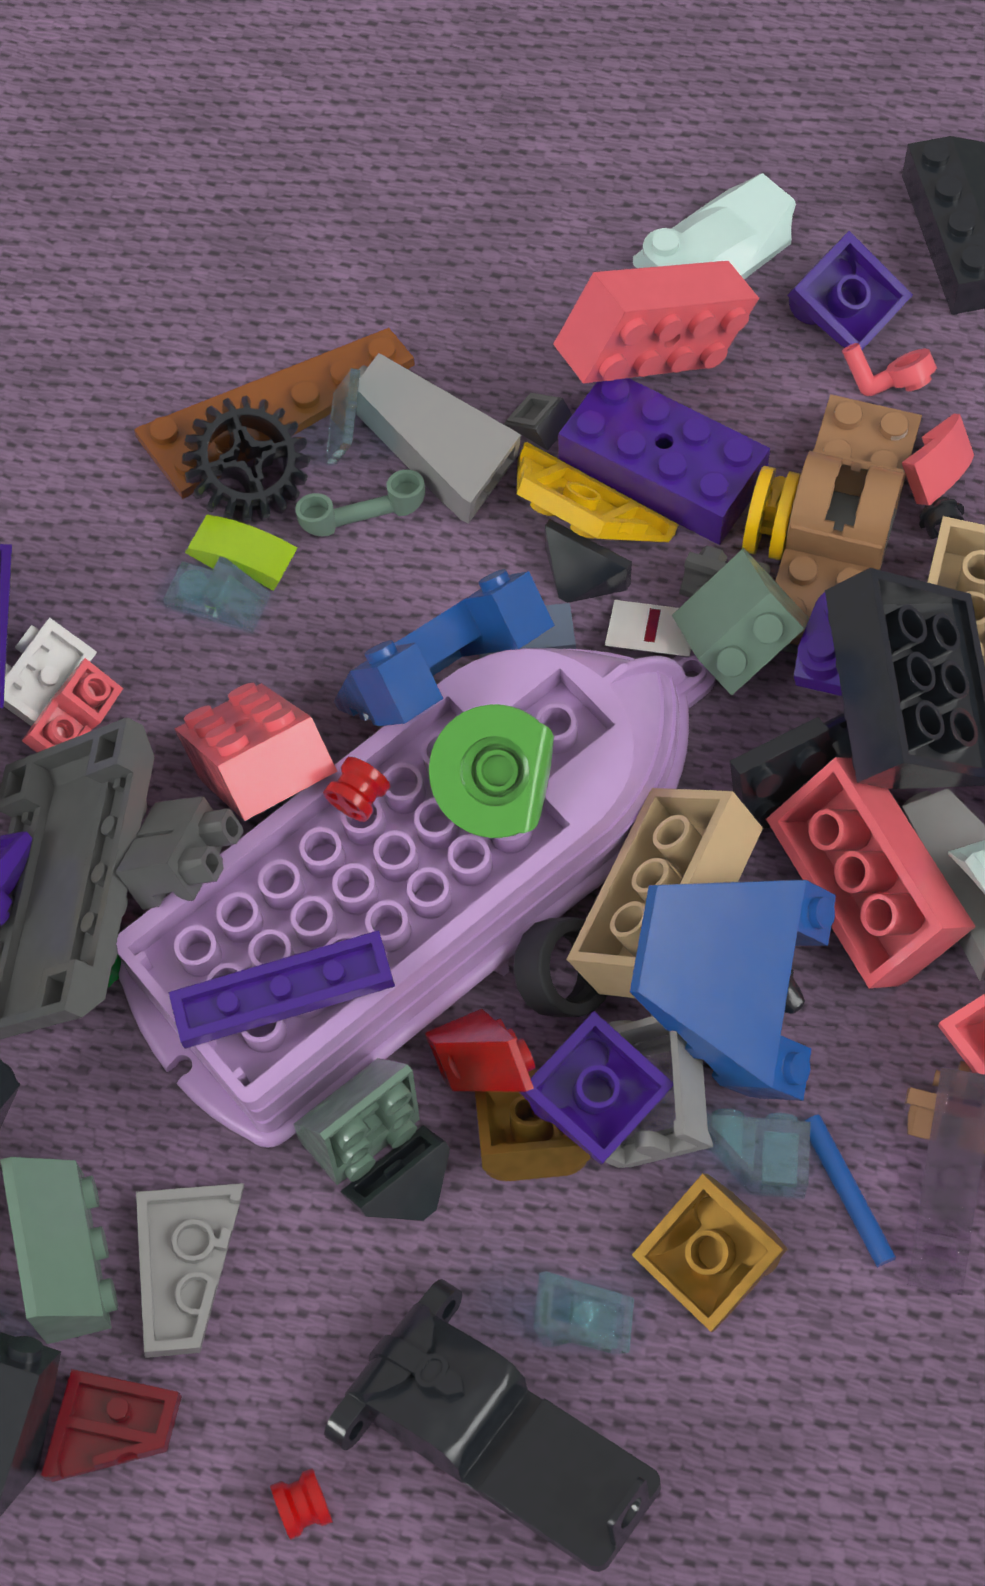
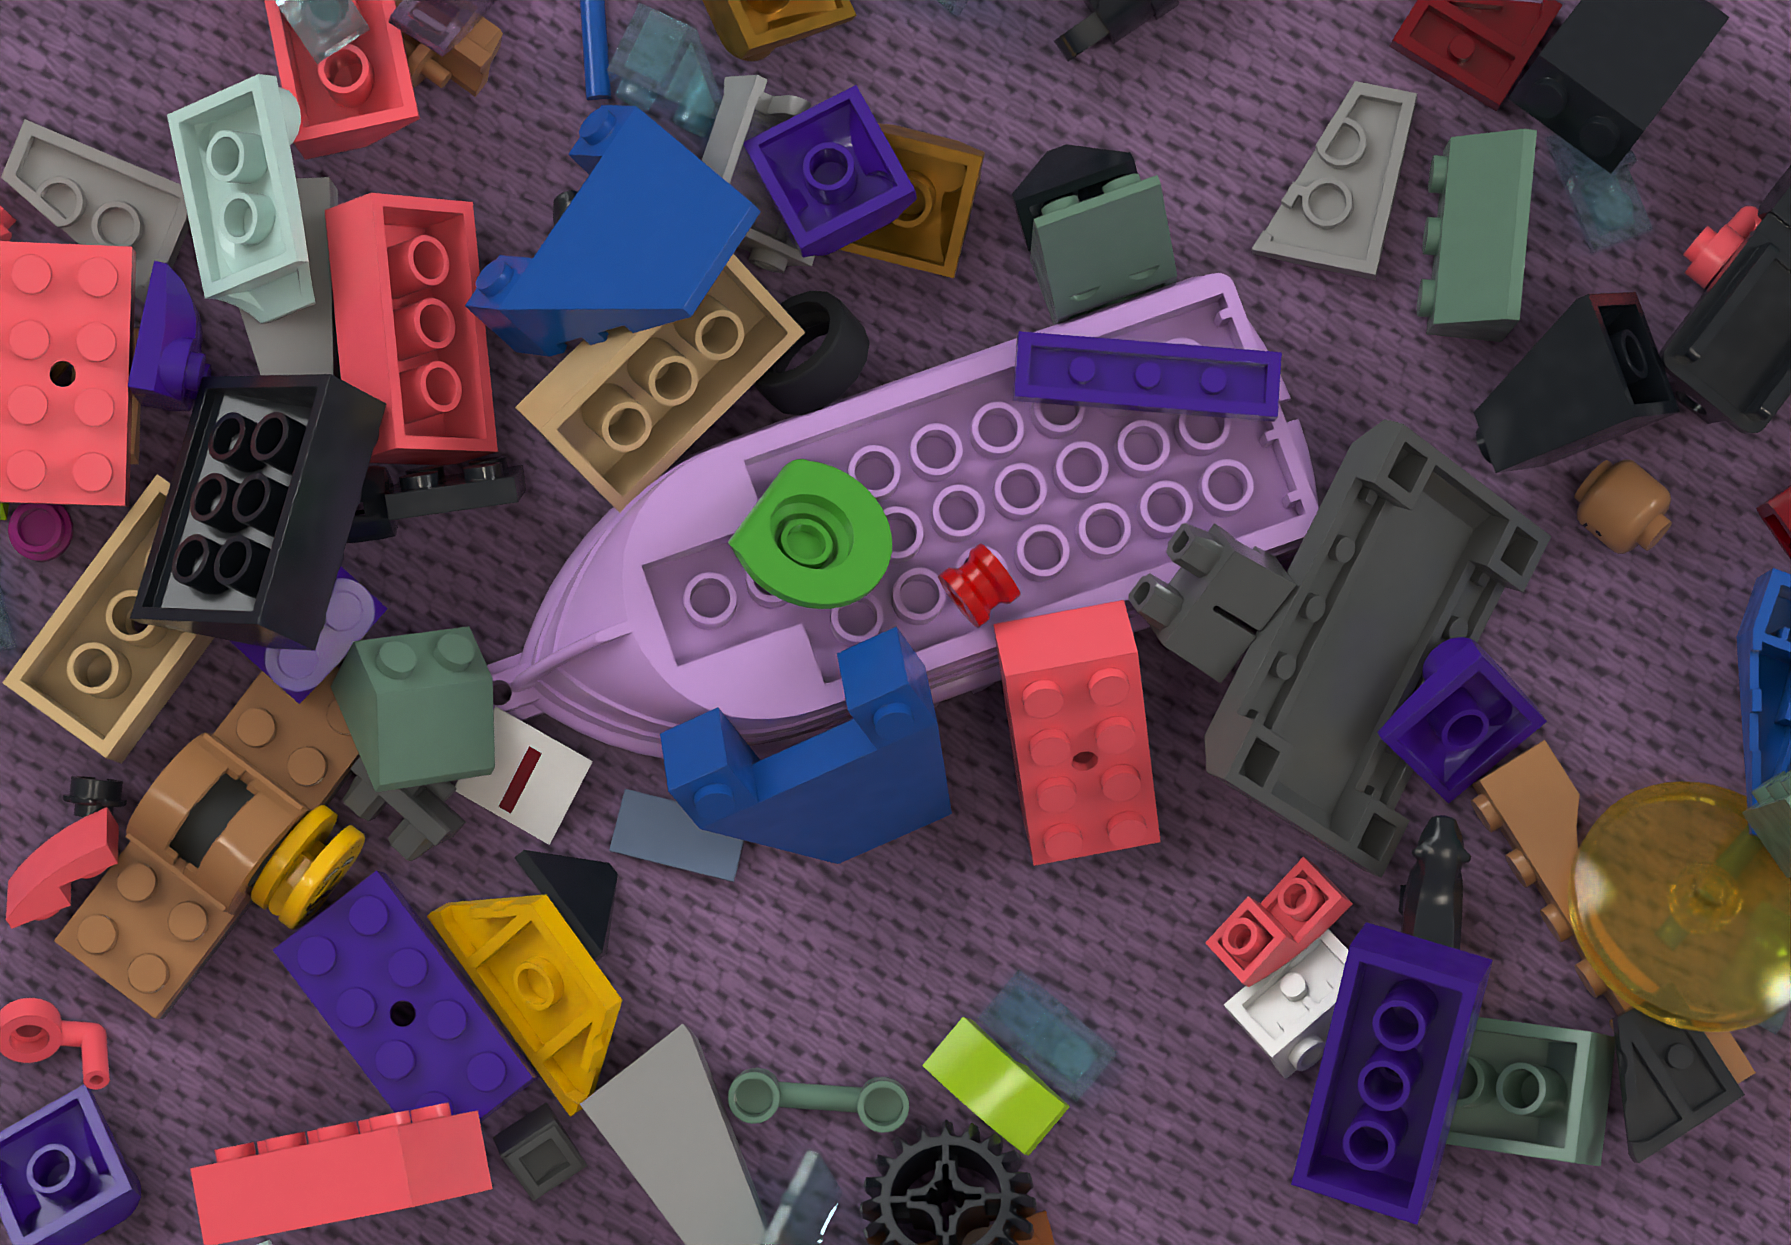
camera: 160 degrees left, 20 degrees up
(481, 1055) = (946, 272): red slope -> none

